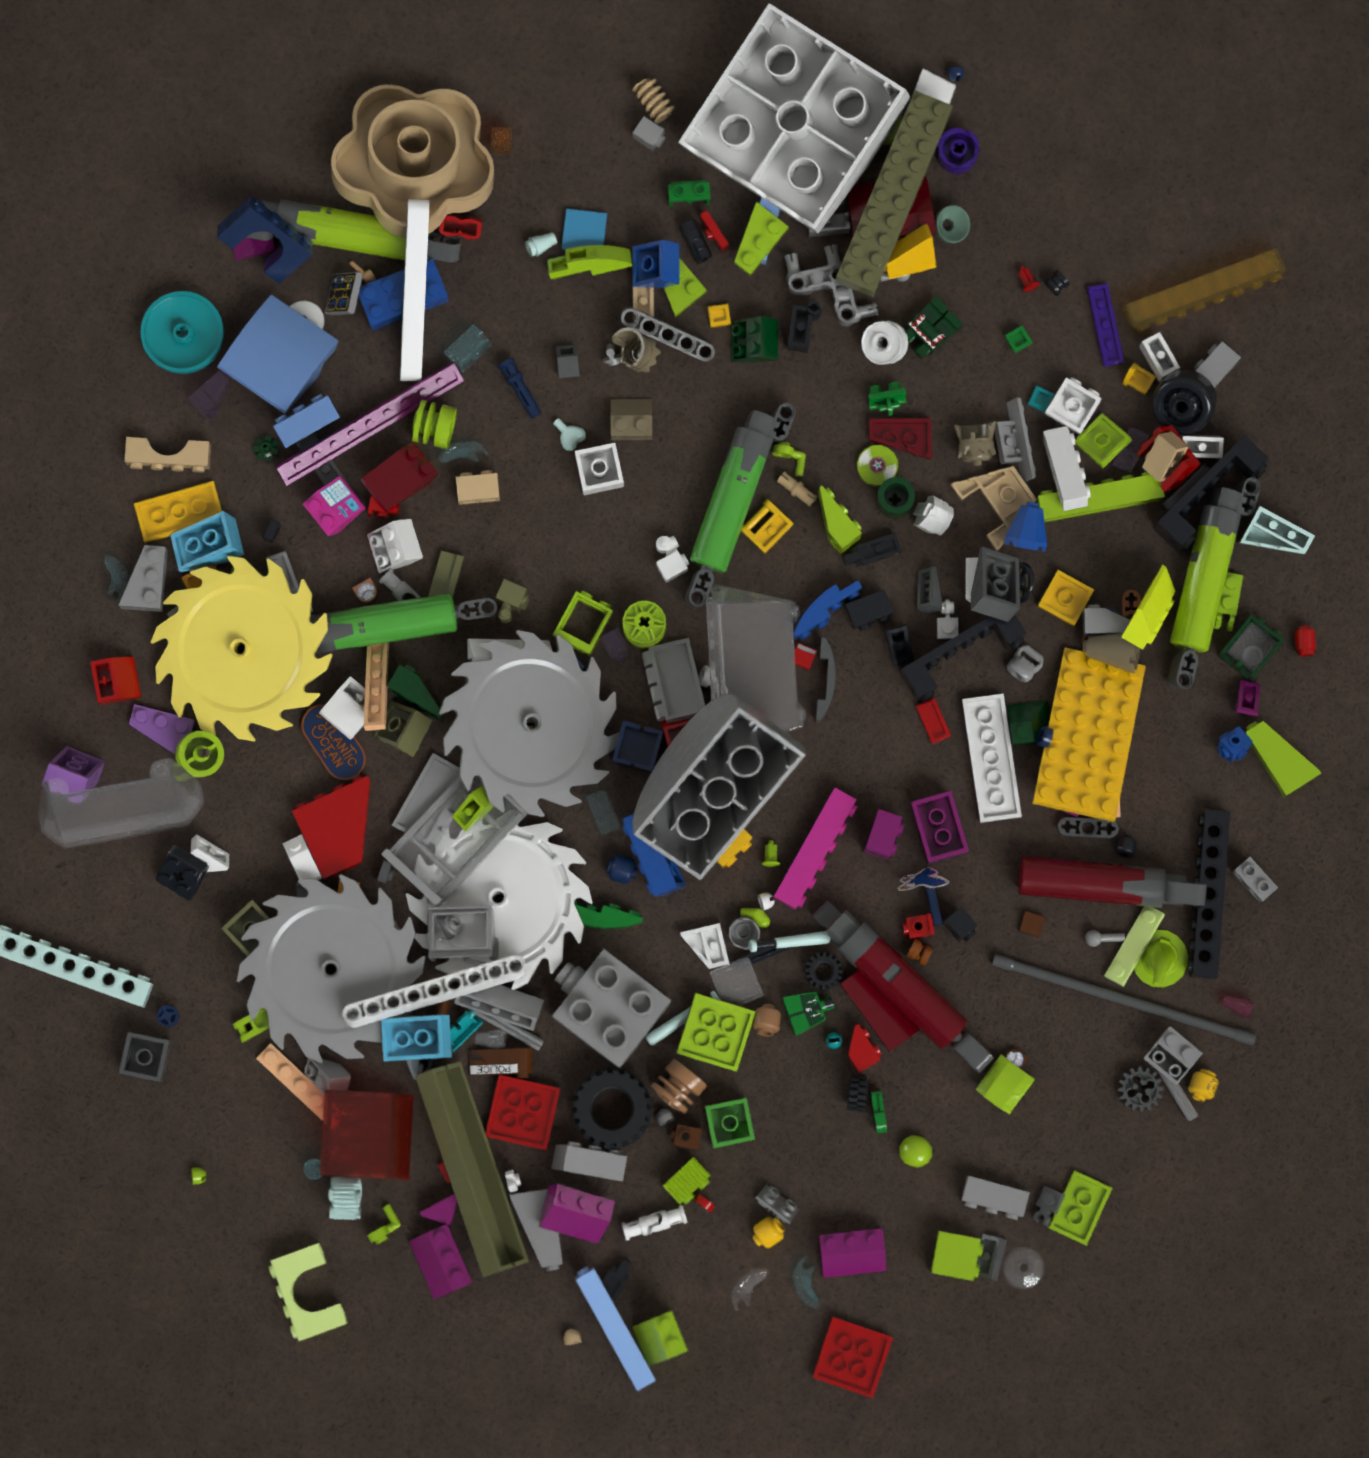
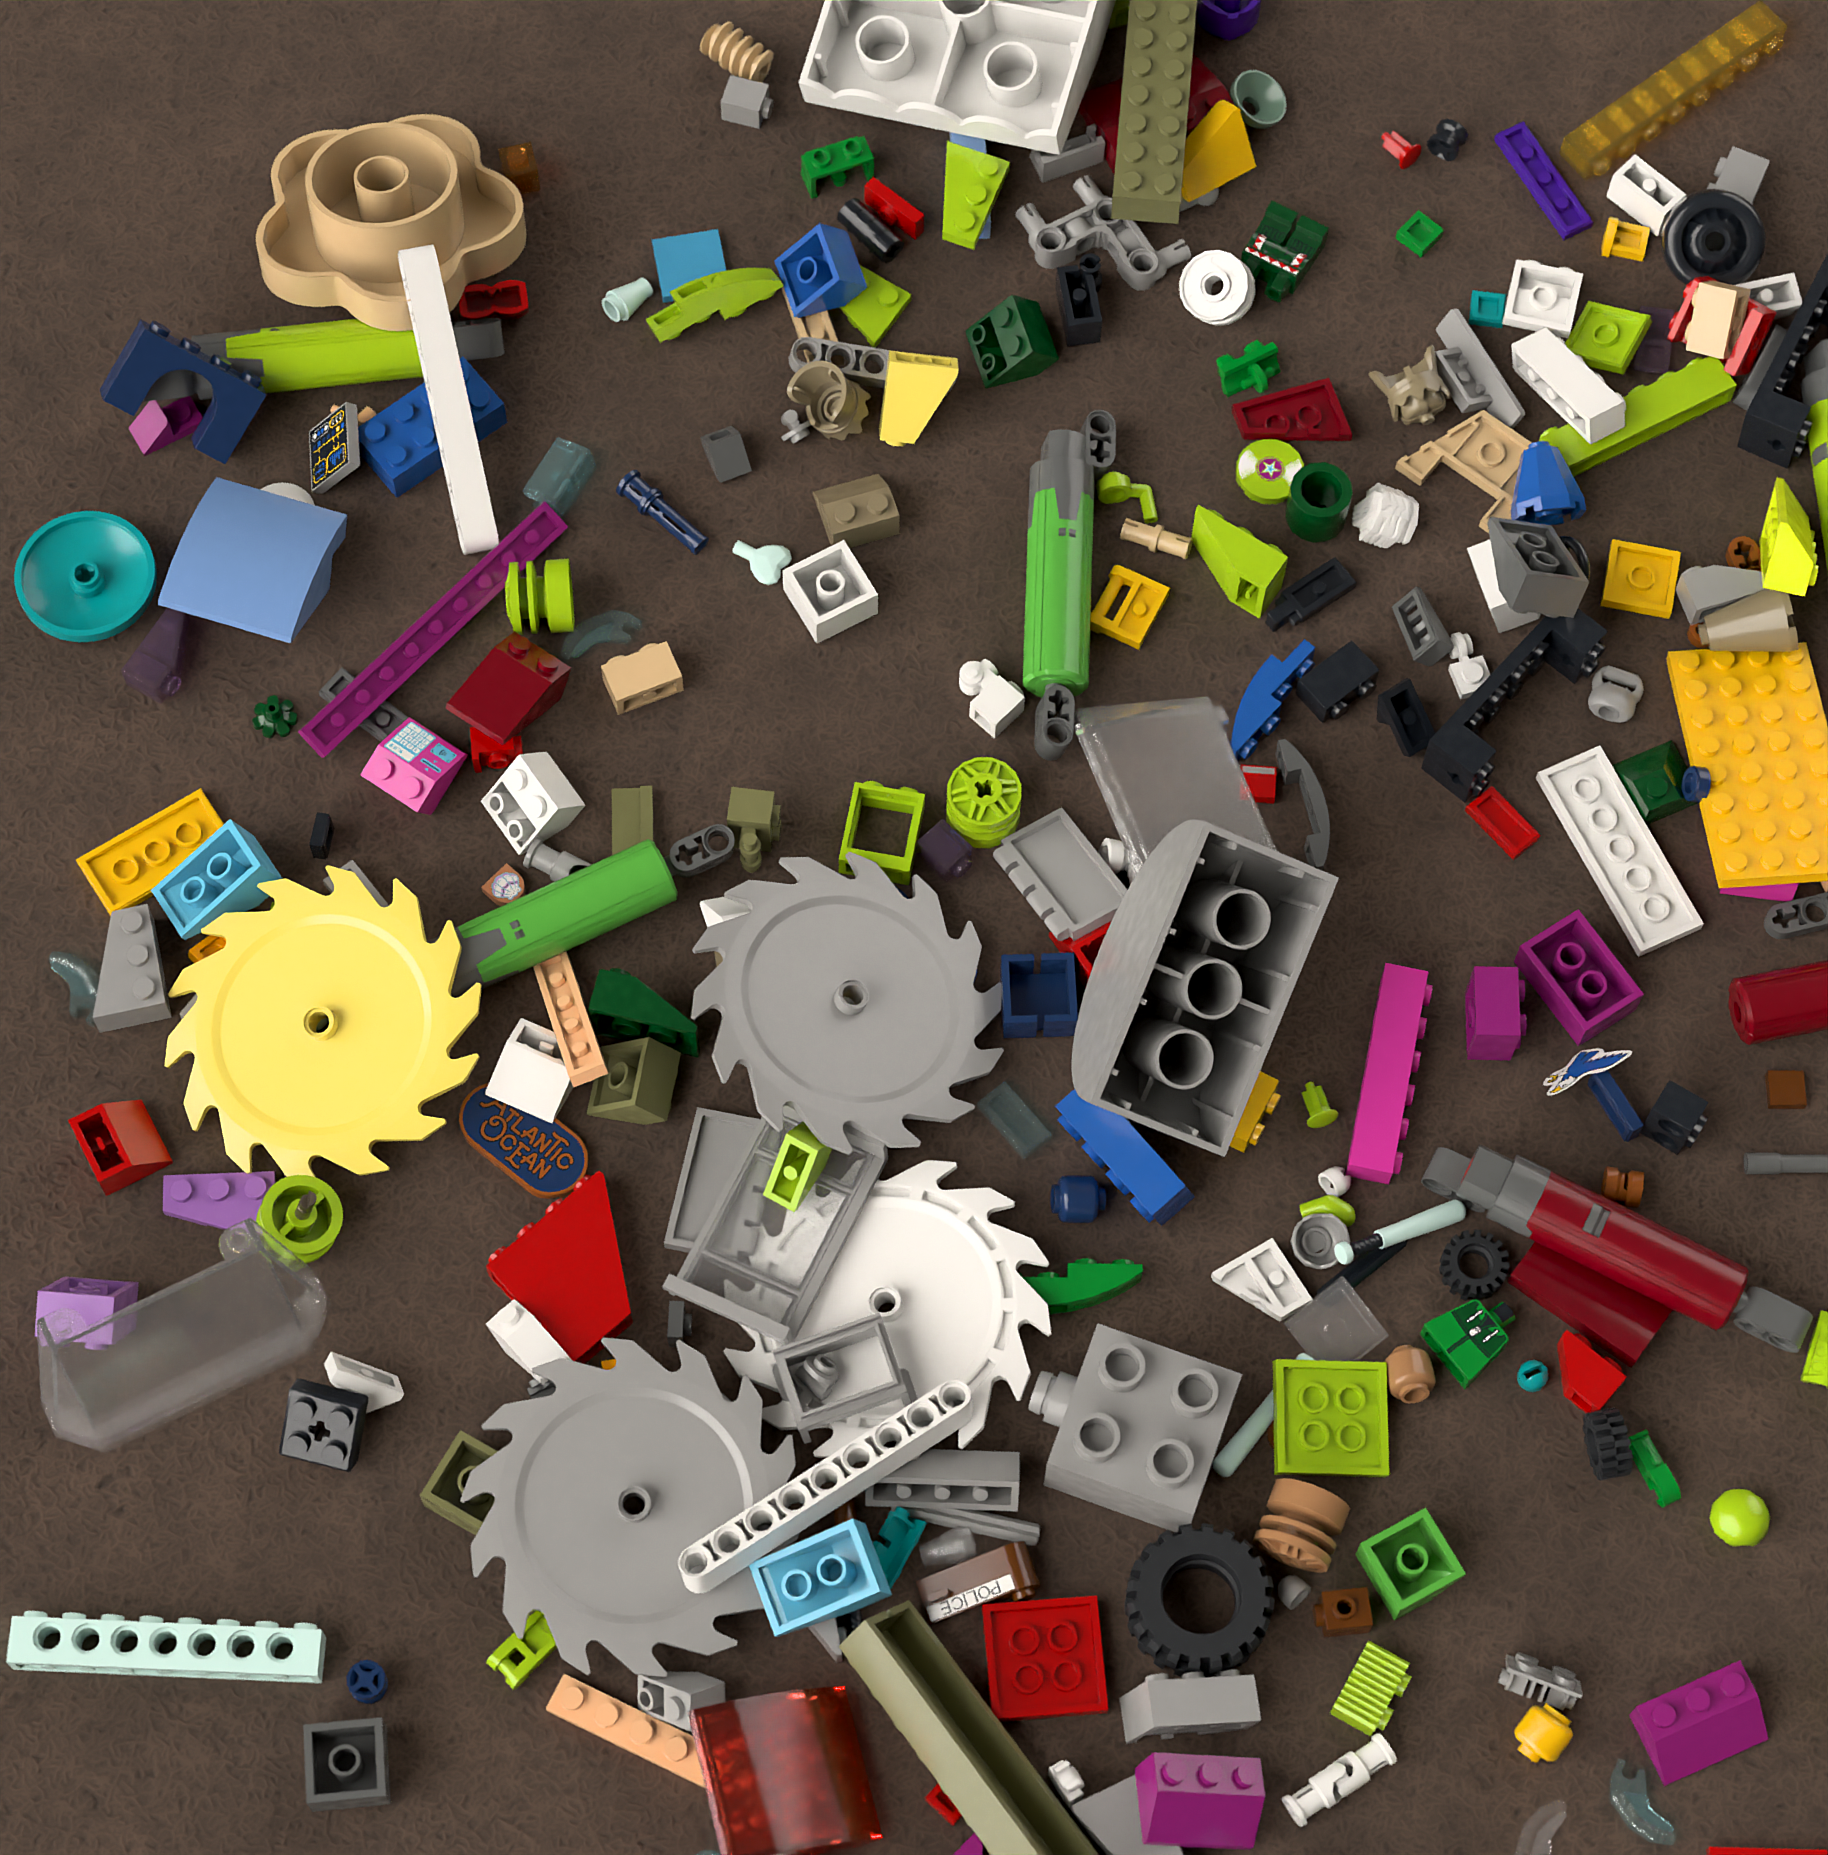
camera: 15 degrees left, 15 degrees down
(194, 455) = (155, 760): tan arch -> none
(305, 420) = (327, 645): medium blue slope -> none
(684, 361) = (913, 393): none -> light yellow slope
(706, 1204) = (1414, 1717): red tile -> none
(719, 315) = (943, 326): yellow tile -> none
(924, 920) = (1596, 1157): red brick -> none

